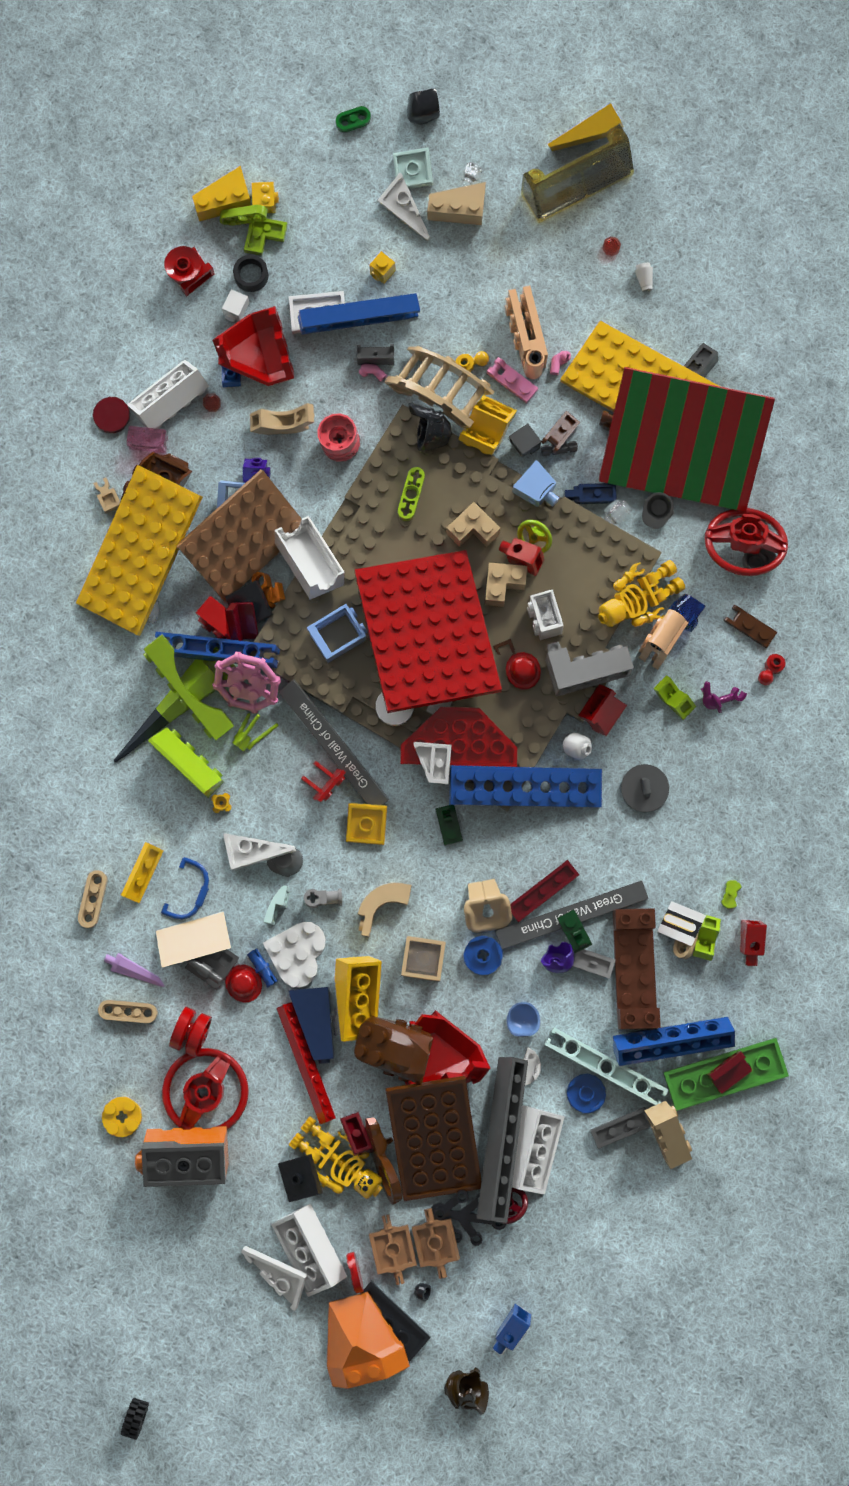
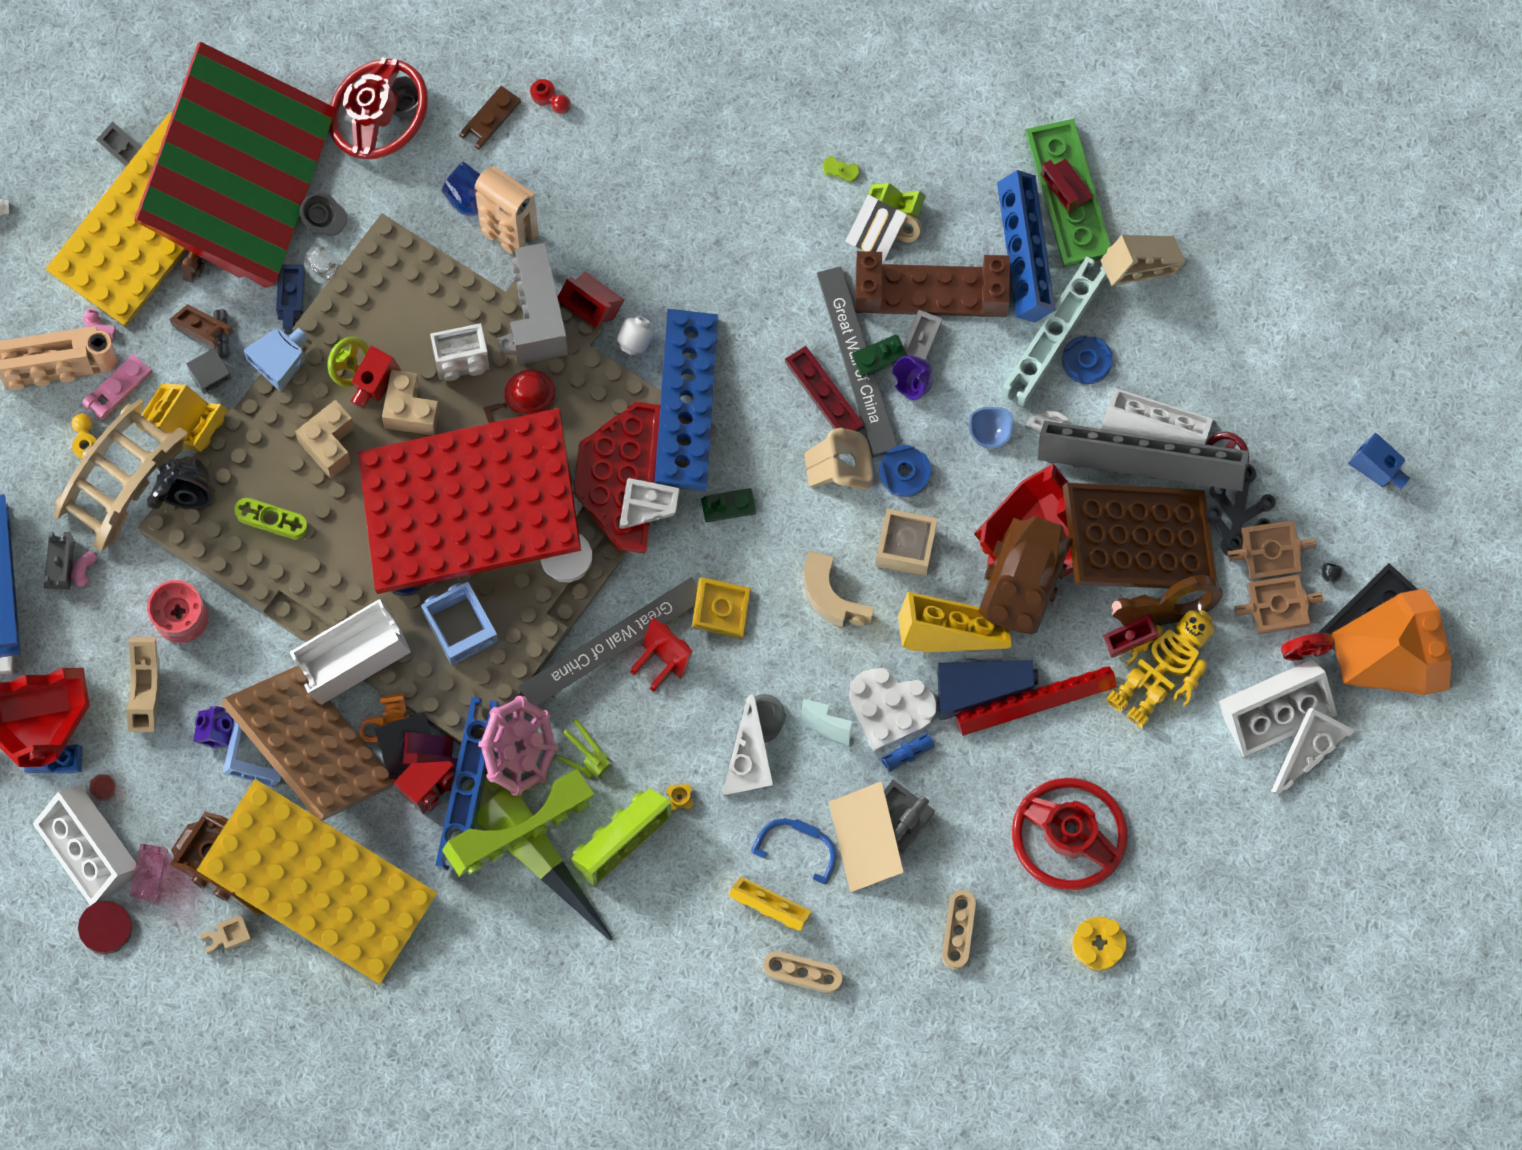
camera: 90 degrees left, 10 degrees down
(127, 967) = (899, 929): lavender bar -> none
(134, 1418) = (1489, 932): black tyre -> none
(183, 1157) = (1155, 848): dark grey piece -> none
(190, 1032) = (990, 840): red wheel -> none
(243, 983) = (927, 777): red hat -> none
(300, 1178) = (1186, 712): black plate -> none
(324, 897) = (818, 667): light grey connector -> none
(467, 1390) = (1454, 522): dark brown helmet -> none
(620, 1128) = (1131, 320): dark grey plate -> none
(633, 603) = (445, 247): yellow piece -> none
(645, 788) = (696, 260): dark grey shield -> none
(674, 698) = (580, 215): lime slope -> none
(712, 701) = (588, 167): magenta piece -> none
(752, 932) = (901, 144): red torso -> none

